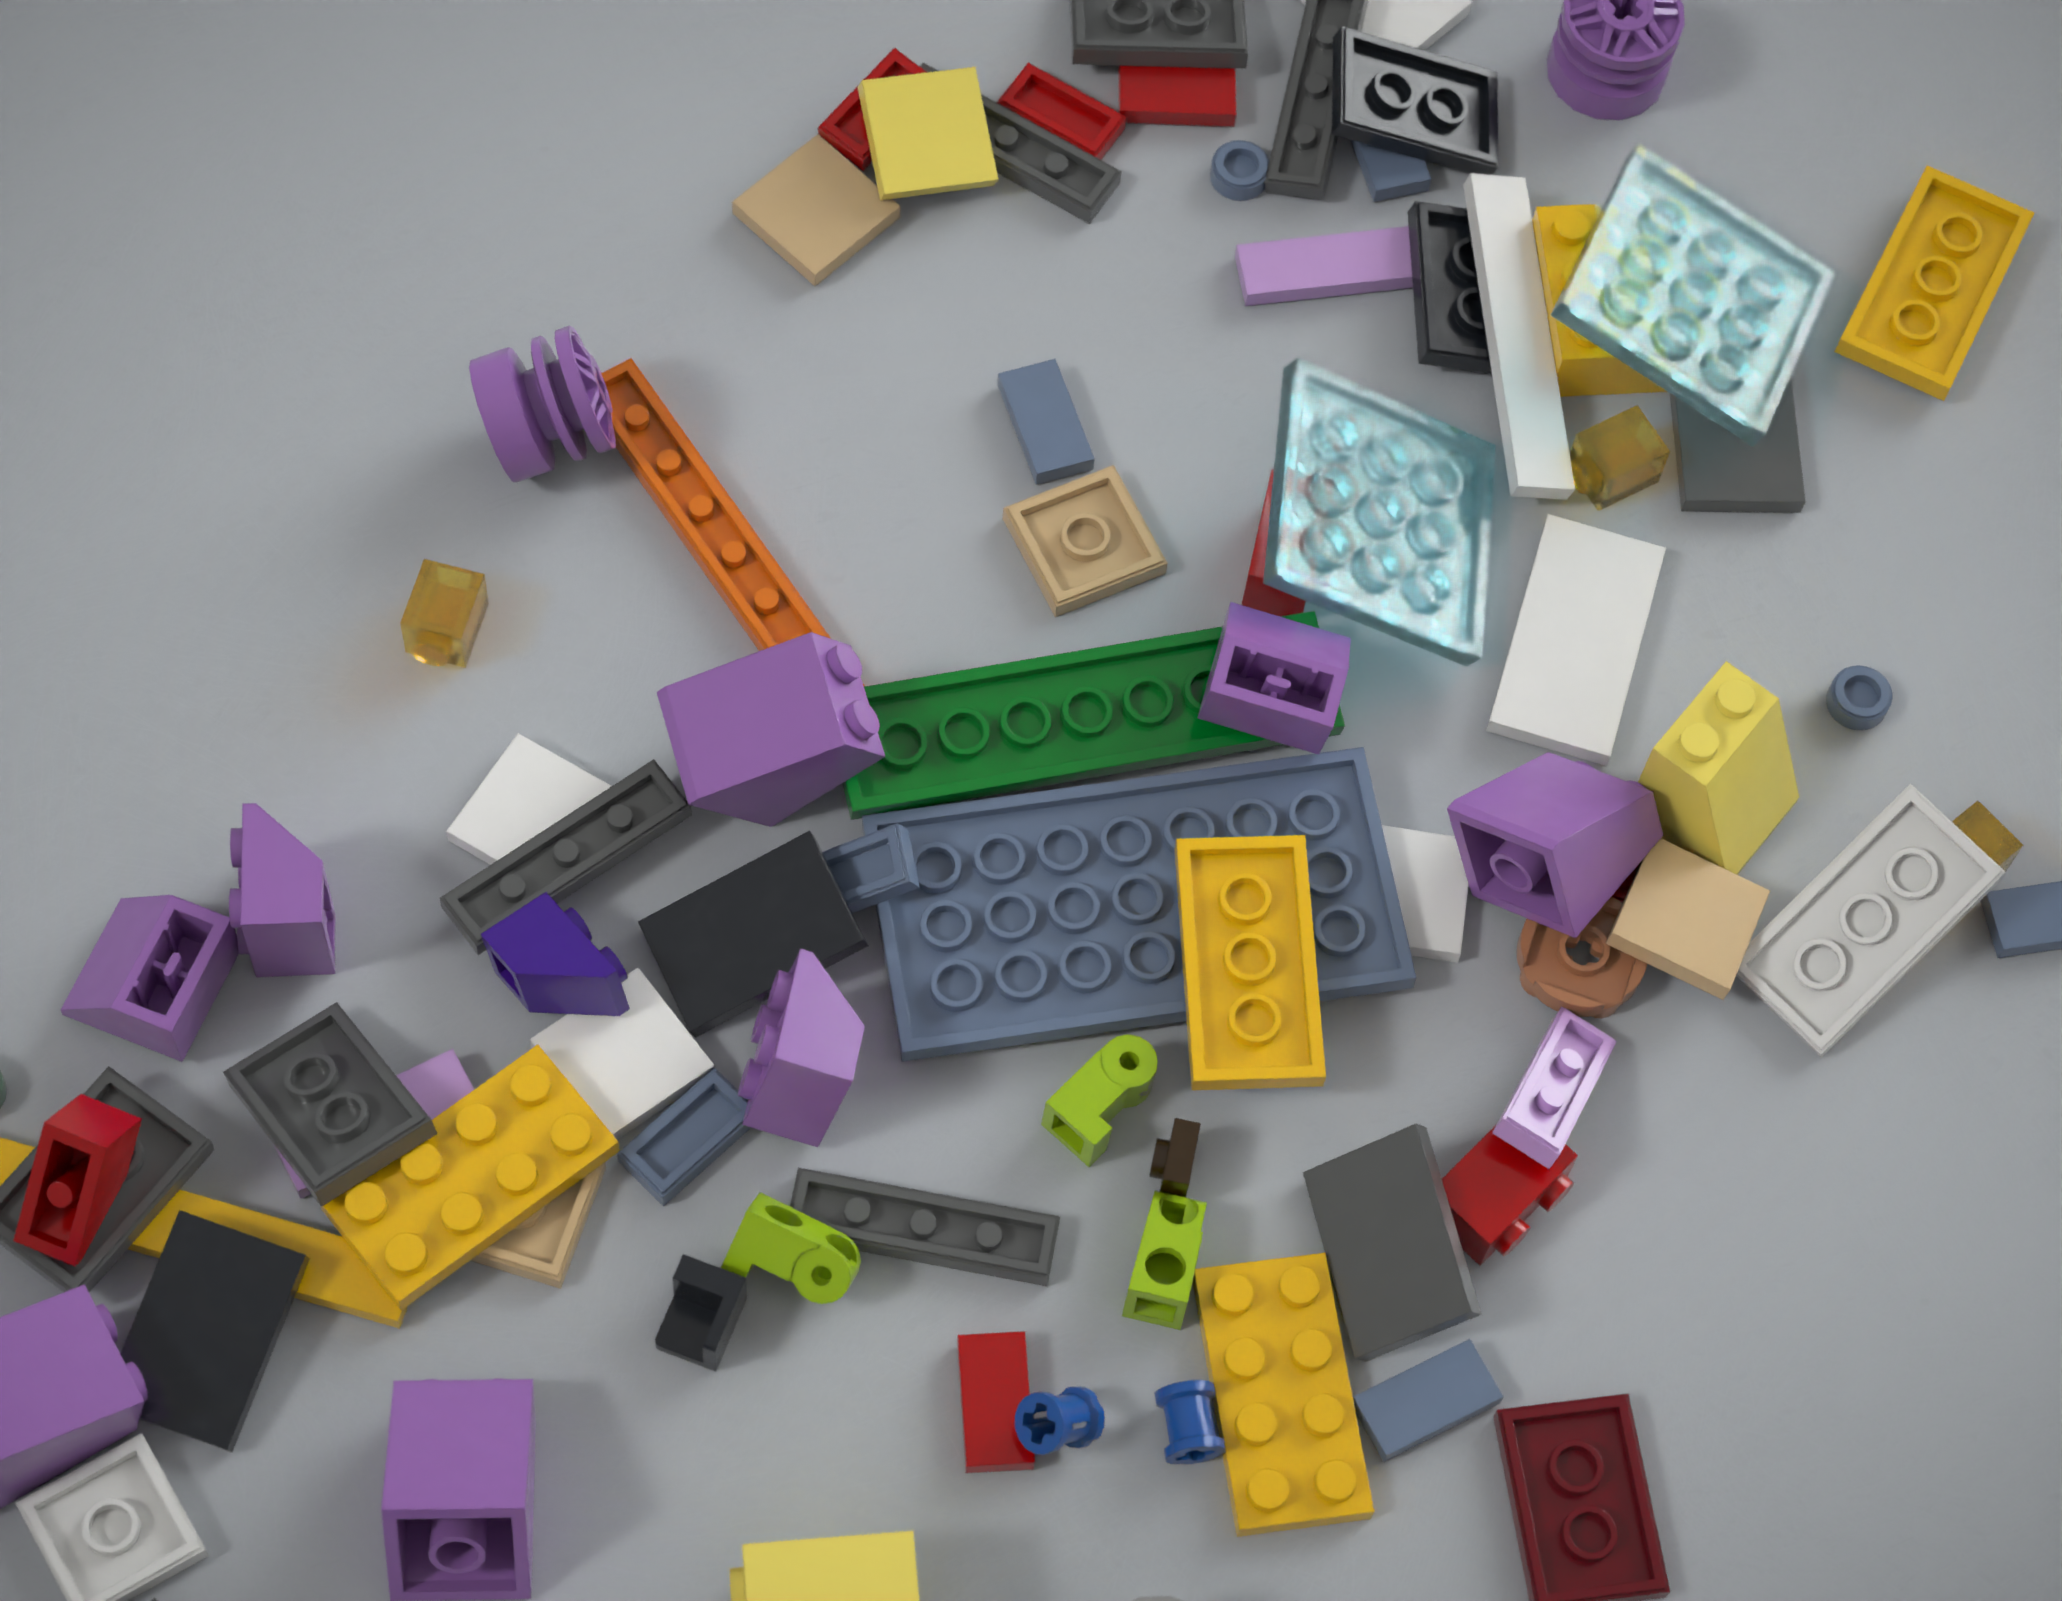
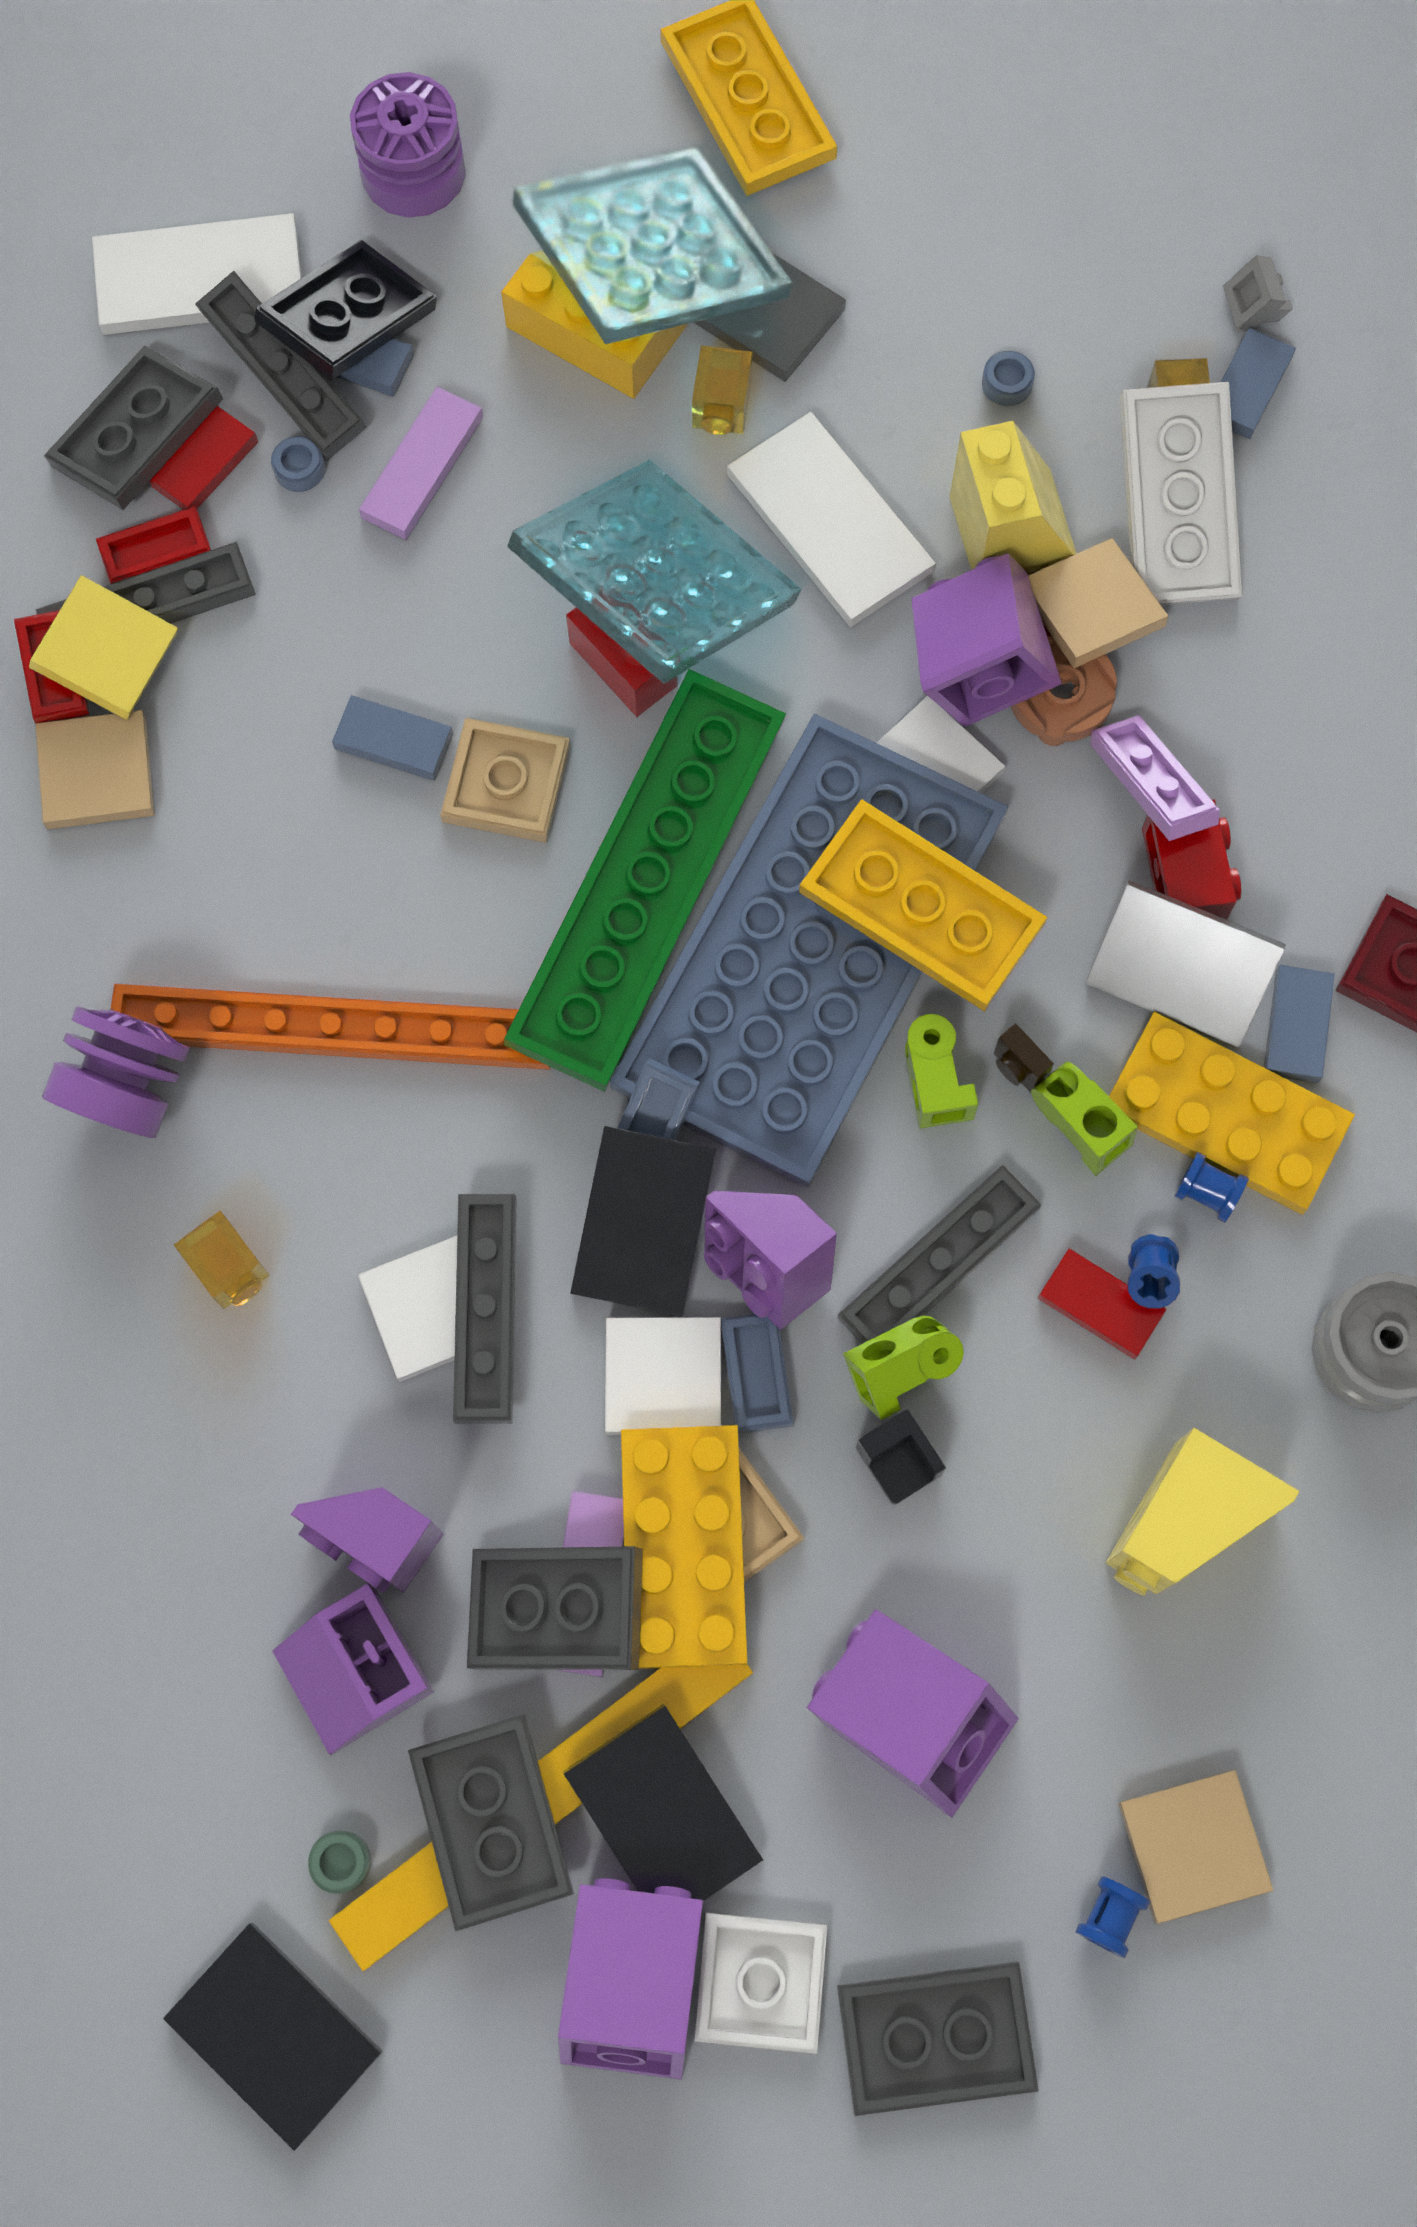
camera: 45 degrees left, 10 degrees up
(76, 1177) = (490, 1834): red slope -> none
(552, 962) = (564, 1376): dark purple slope -> none
(772, 729) = (508, 1094): medium lavender slope -> none
(1276, 678) = (729, 728): medium lavender slope -> none
(1446, 289) = (518, 384): black tile -> none
(1518, 337) = (582, 380): white tile -> none

